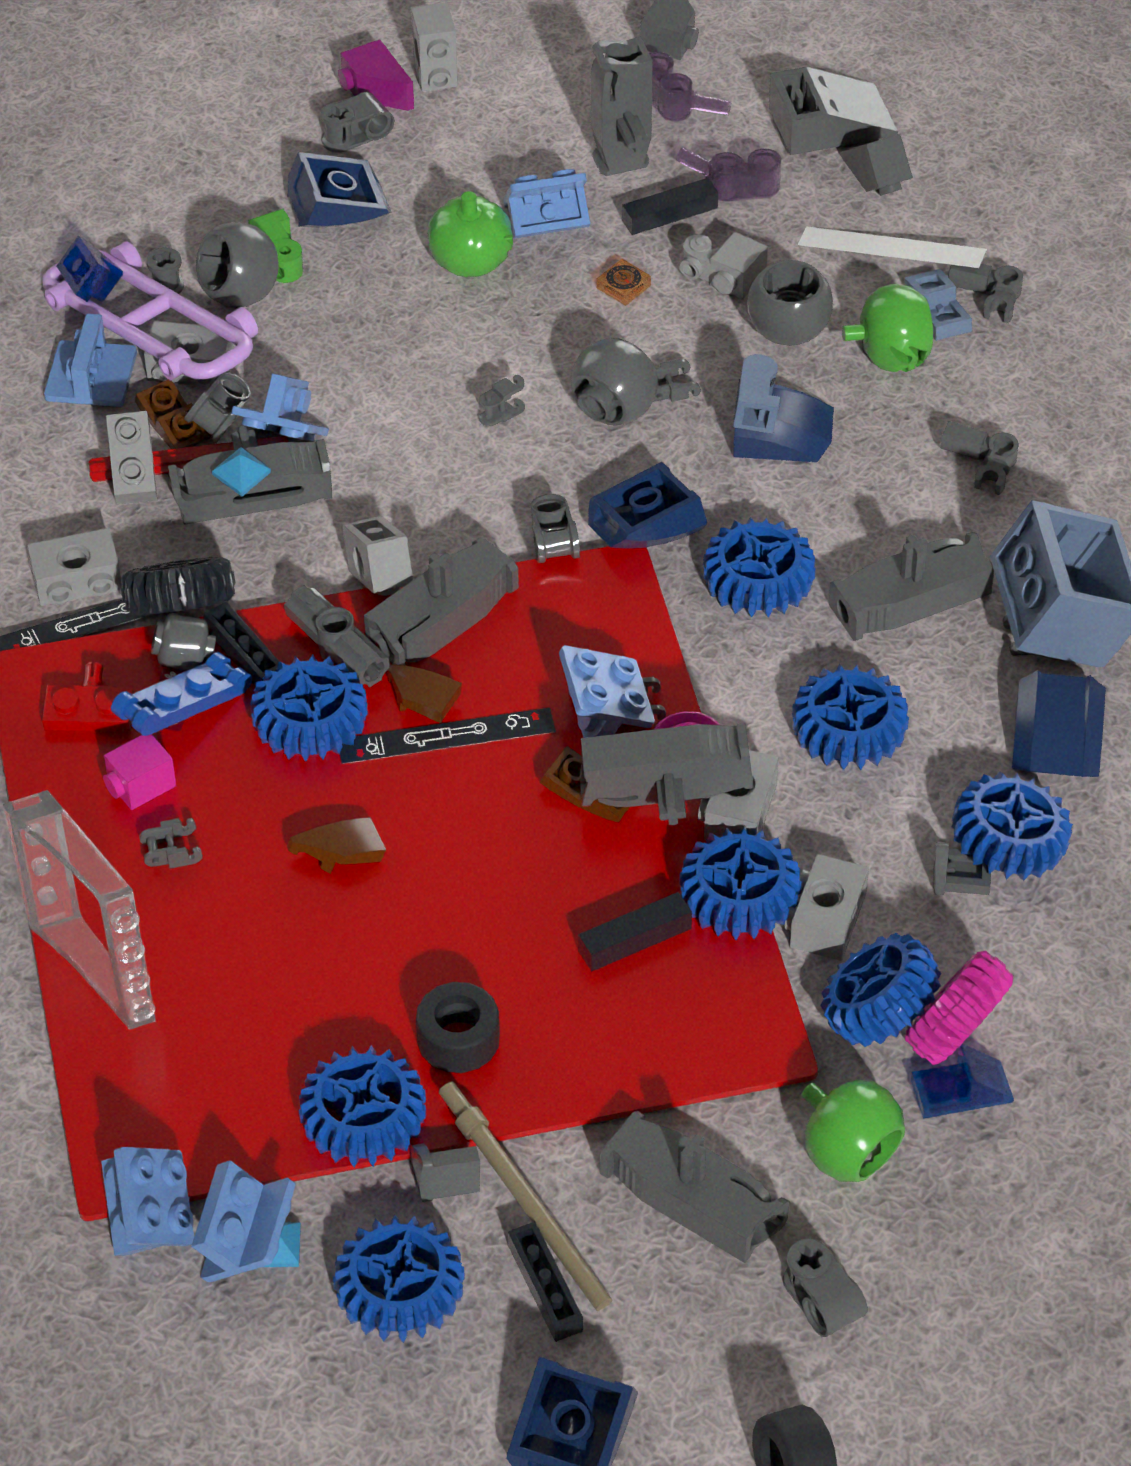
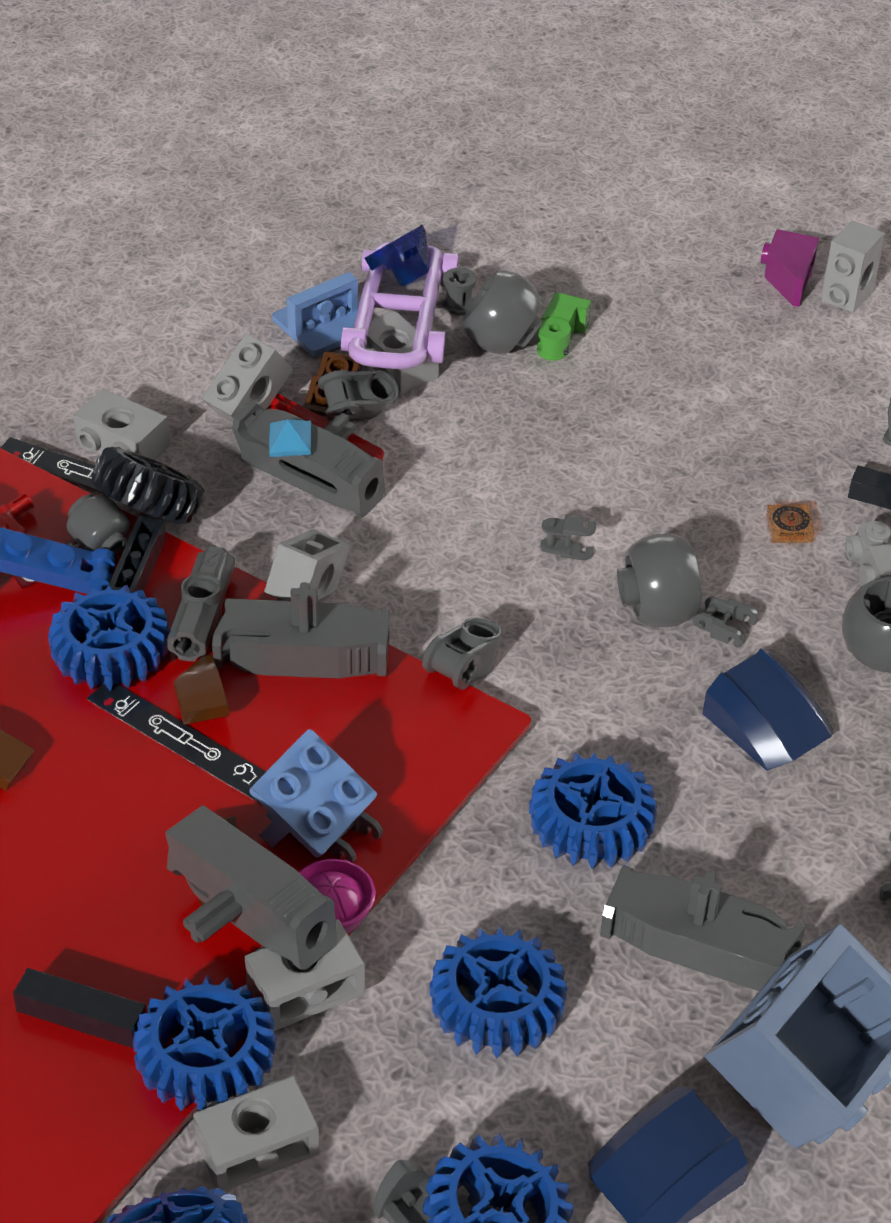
camera: 45 degrees right, 5 degrees down
(283, 407) = (394, 425): medium blue bracket -> none
(334, 191) = (655, 318): dark blue slope -> none
(356, 118) = (732, 283): dark grey piece -> none
(470, 235) = (698, 401): bright green piece -> none
(547, 204) = (796, 425): medium blue bracket -> none
(646, 510) = (558, 695): dark blue slope -> none
(755, 405) = (746, 663): sand blue leg -> none

